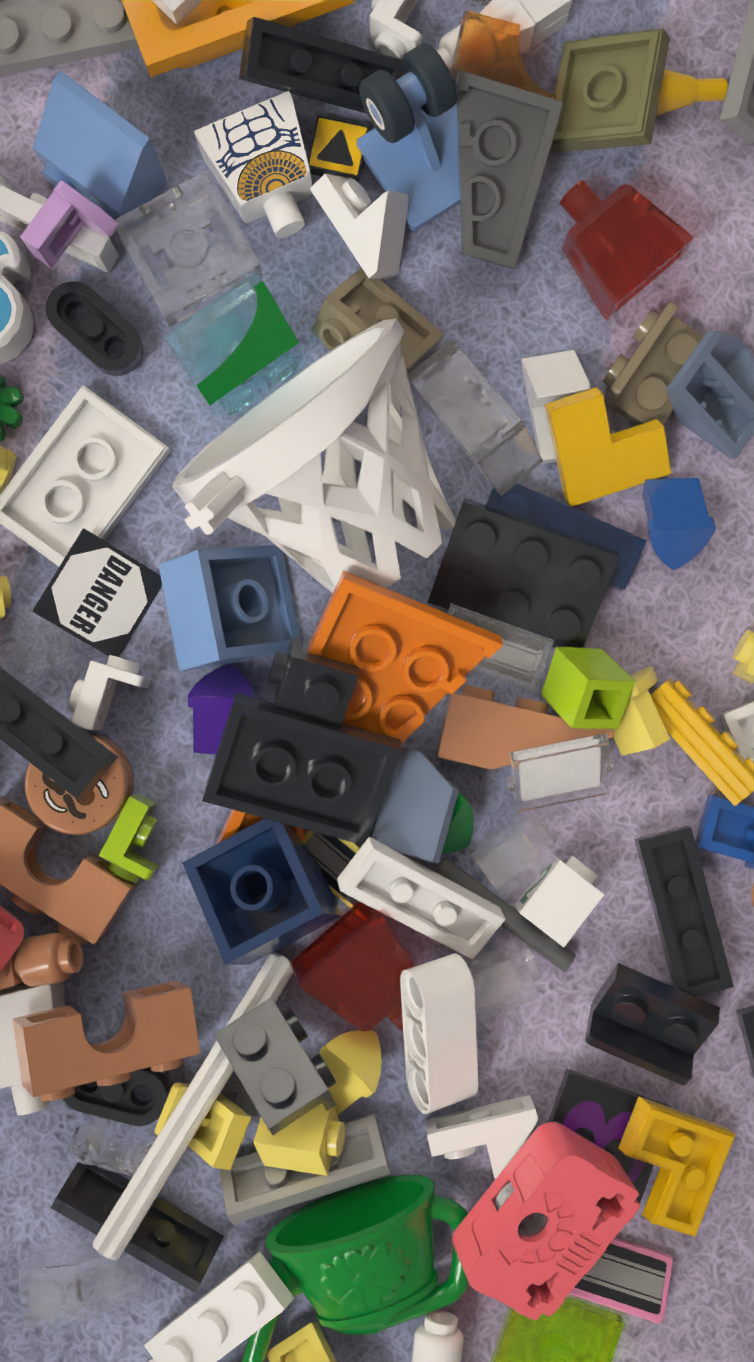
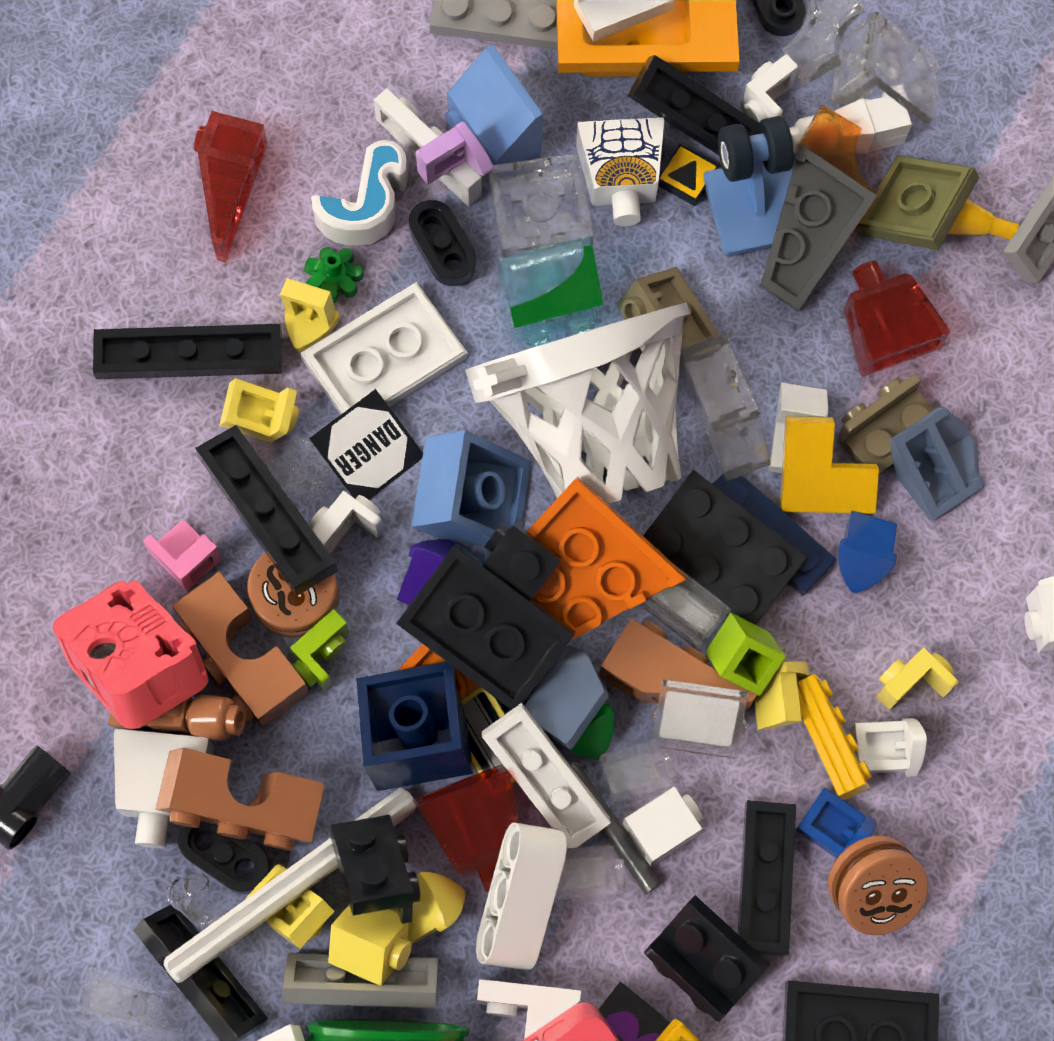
camera: 15 degrees right, 15 degrees down
(370, 232) = (691, 241): white slope -> none

